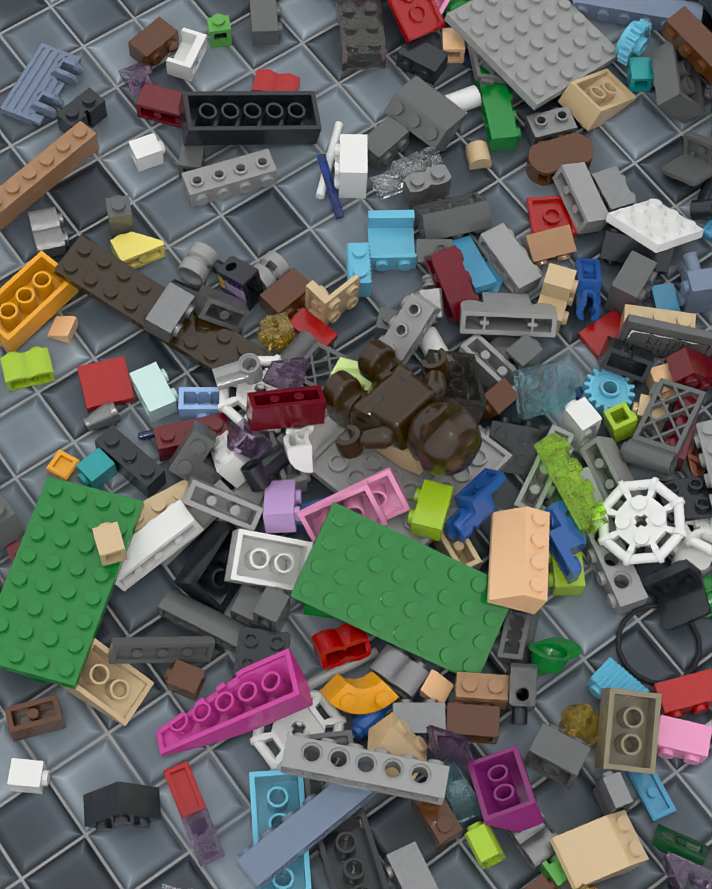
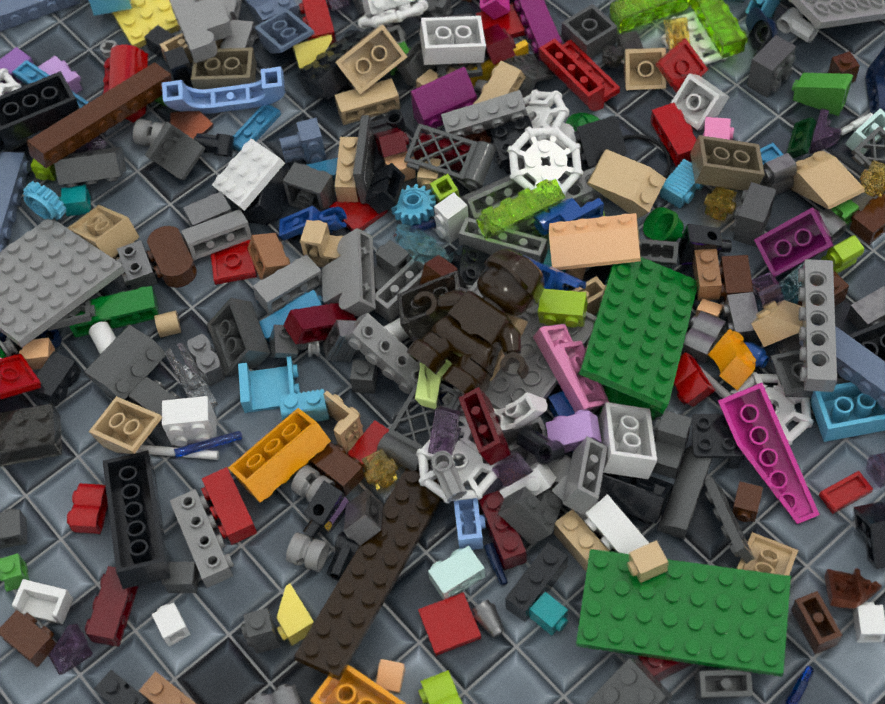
camera: 85 degrees left, 5 degrees down
(62, 465) = (546, 650): light orange tile -> none
(66, 759) = (849, 590): none -> copper slope
(169, 313) = (379, 555): flat silver brick -> none
(259, 201) = (228, 506): none -> red brick
(300, 239) = (279, 454): none -> light orange brick
(351, 110) = (124, 426): none -> tan slope
(613, 613) = (626, 182): none -> tan slope

